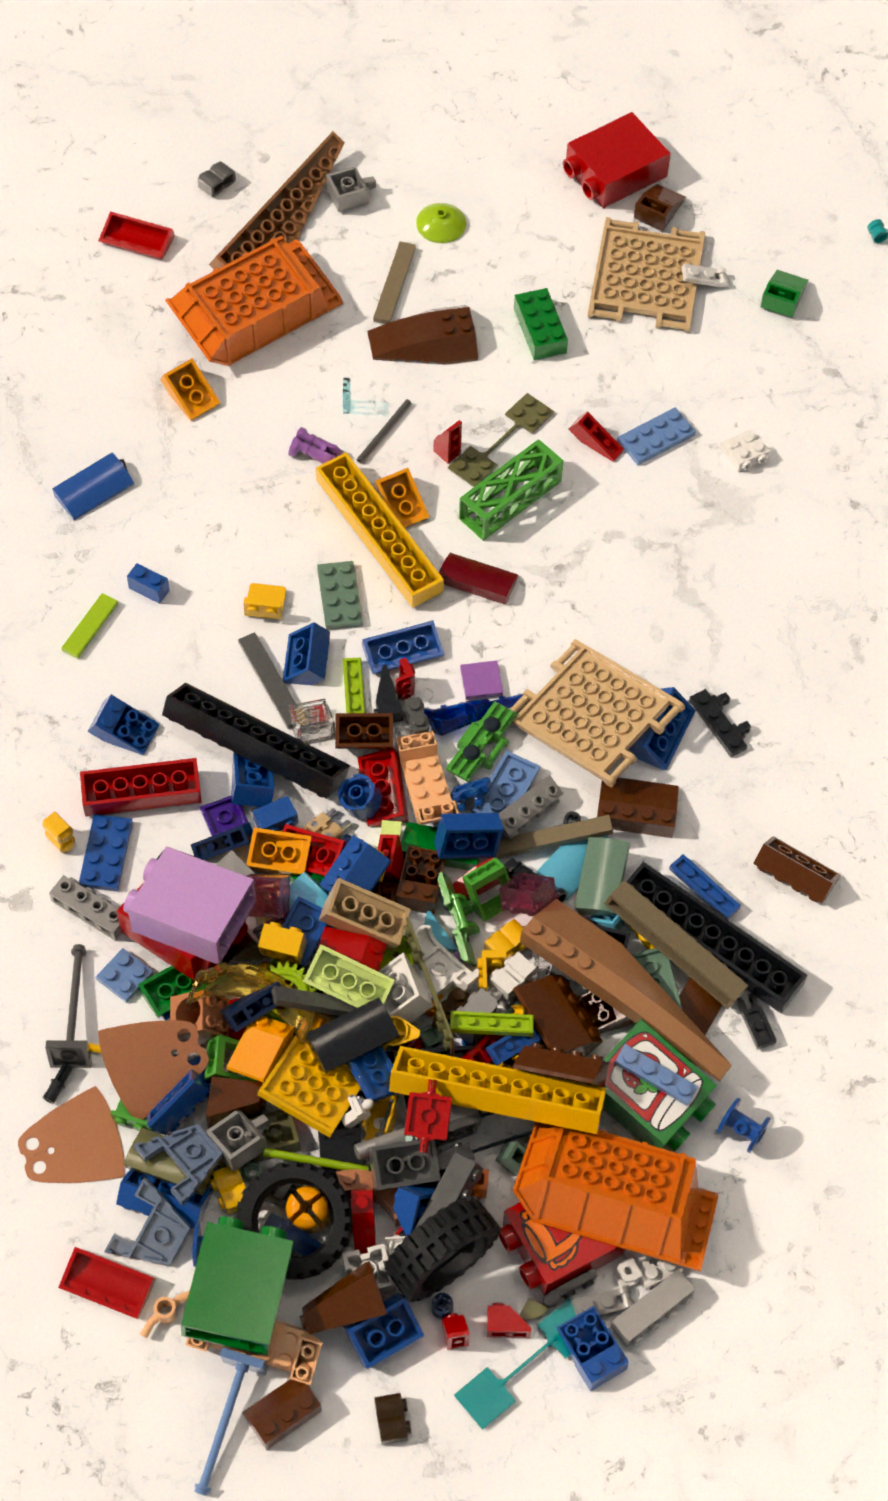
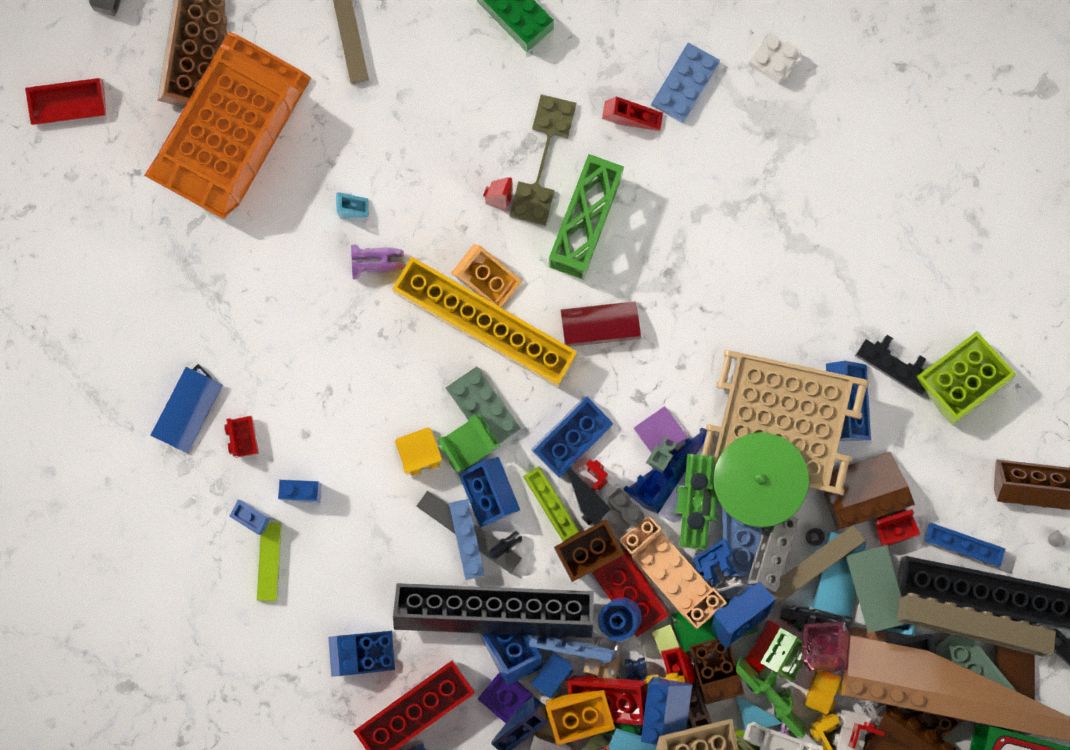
camera: 25 degrees left, 20 degrees up
(95, 583) = (250, 517): none -> plate
(125, 524) = (242, 437): none -> red bracket
(190, 389) = (219, 255): light orange slope -> none
(265, 681) = (466, 539): none -> medium blue plate
(292, 698) = (505, 545): none -> black axle
(302, 796) = (573, 647): none -> medium blue wing
(312, 721) = (533, 560): clear slope -> none
(315, 609) = (469, 443): none -> bright green panel
(318, 401) = (351, 206): none -> medium azure slope
(346, 393) = (375, 188): clear light blue tile -> none
(383, 431) = (428, 205): dark grey piece -> none
(431, 336) = (413, 77): reddish brown wedge -> none
(469, 693) = (660, 457): none -> sand green plate
(526, 967) = (856, 729): none -> red bracket
(546, 743) = (761, 480): none -> bright green container
(649, 843) = (896, 527): none -> red bracket
(778, 756) = (965, 378): none -> lime slope
(792, 921) = (1056, 539): none -> light grey hinge

